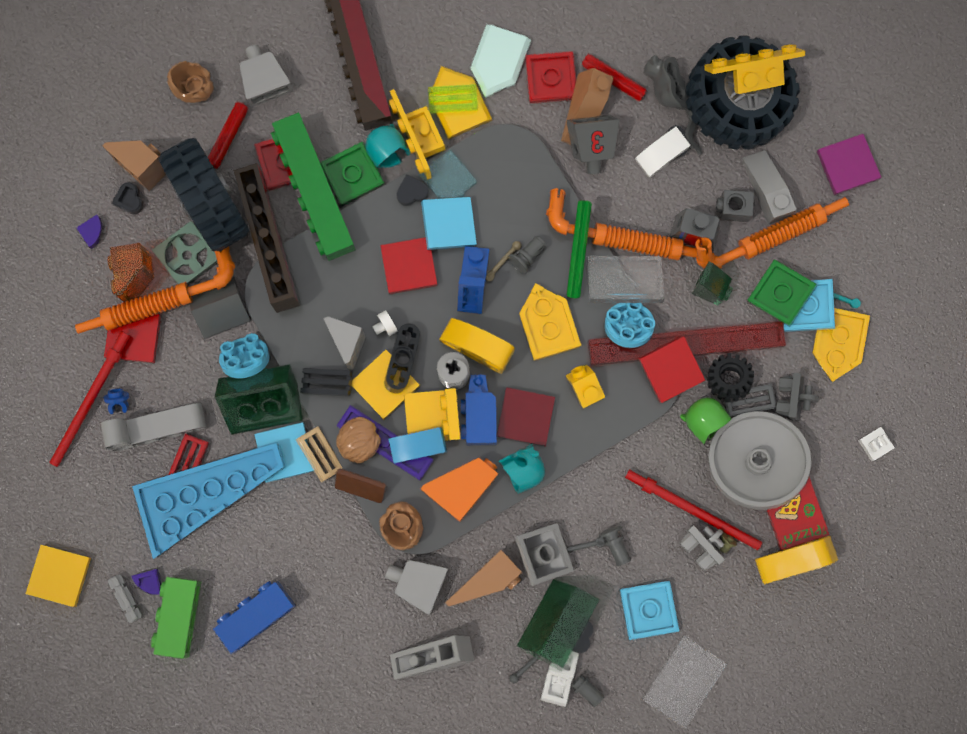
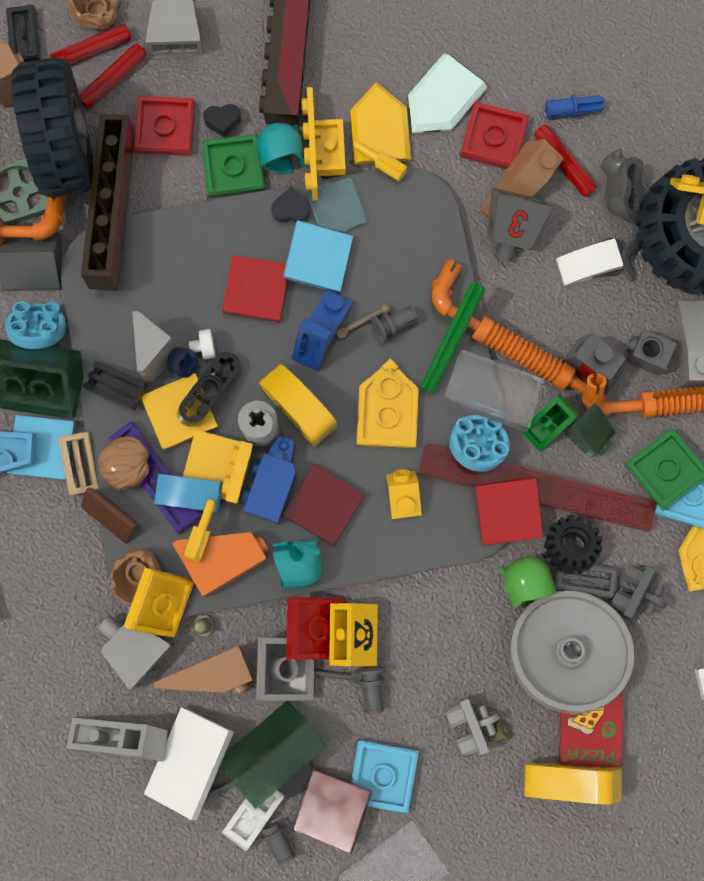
camera: 20 degrees right, 0 degrees up
(158, 140) = (21, 10): none -> black tile
(200, 117) = (94, 44): none -> red axle
(313, 186) = (182, 164): green brick -> none
(329, 139) = (222, 119): none -> black tile
(373, 344) = (182, 362): none -> dark blue tile
(427, 538) = (159, 603): none -> yellow tile
(440, 475) = (199, 535): none -> yellow axle
(452, 98) = (378, 111): clear neon green tile -> none
(466, 545) = (203, 625): none -> olive piece
(472, 129) = (383, 161): none -> yellow axle
(496, 655) = (189, 763): none -> white tile
(555, 514) = (309, 627): none -> red tile
(586, 508) = (353, 634): none -> yellow brick
(605, 31) = (573, 106): none -> blue axle
(620, 649) = (333, 810): none -> tile
(649, 486) = (436, 635): red bar -> none
(678, 288) = (550, 422): none -> green slope

